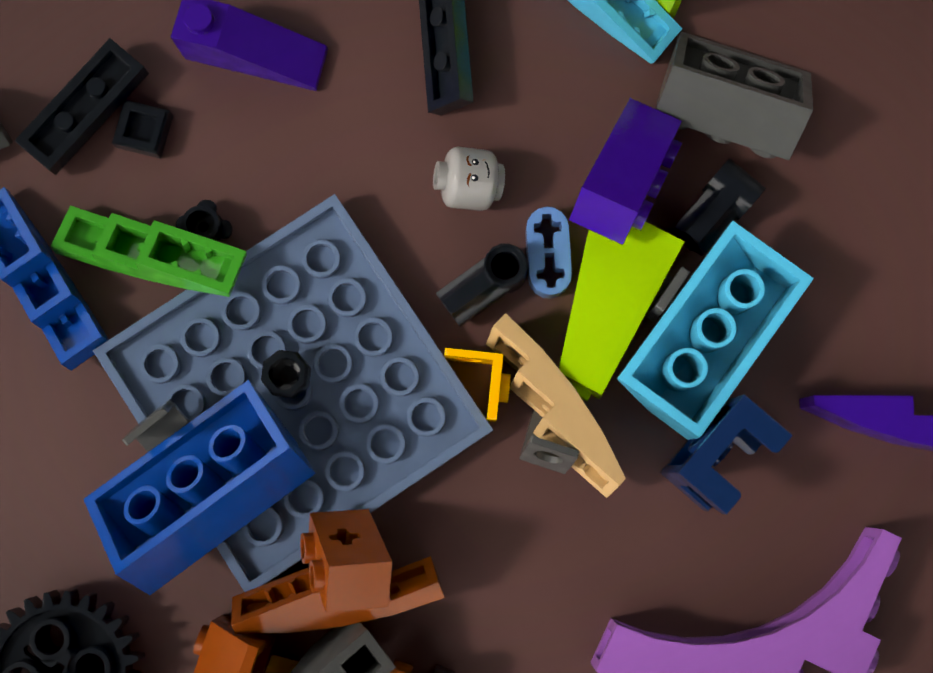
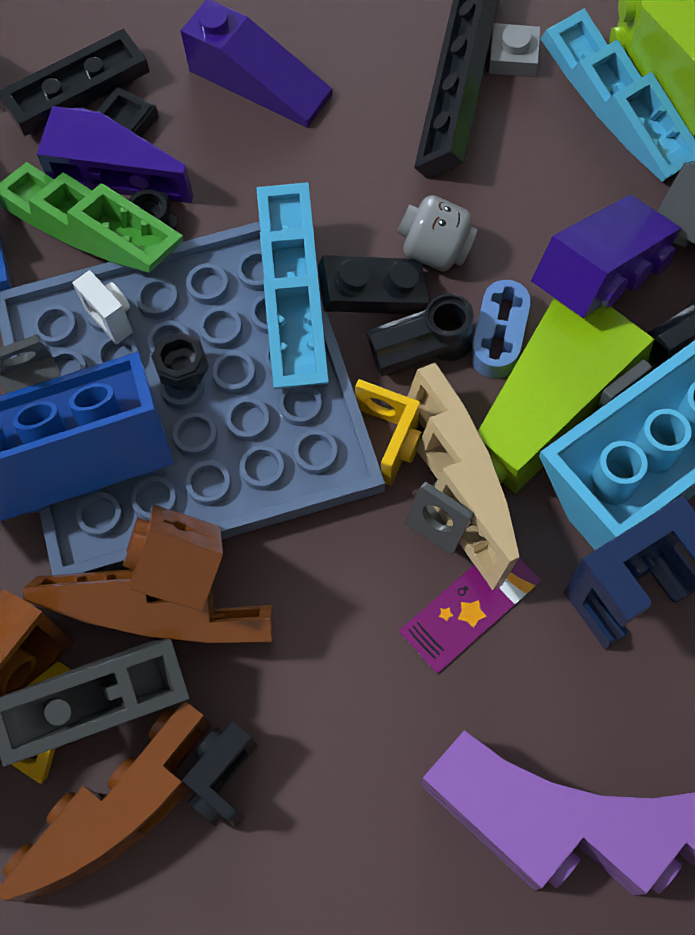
camera: 20 degrees right, 15 degrees down
(132, 180) = (103, 151): none -> dark purple slope
(203, 342) = (104, 305): none -> white plate
(359, 274) = (291, 286): none -> medium azure slope
(427, 245) = (372, 285): none -> black plate
(584, 518) = (464, 614): none -> magenta sticker

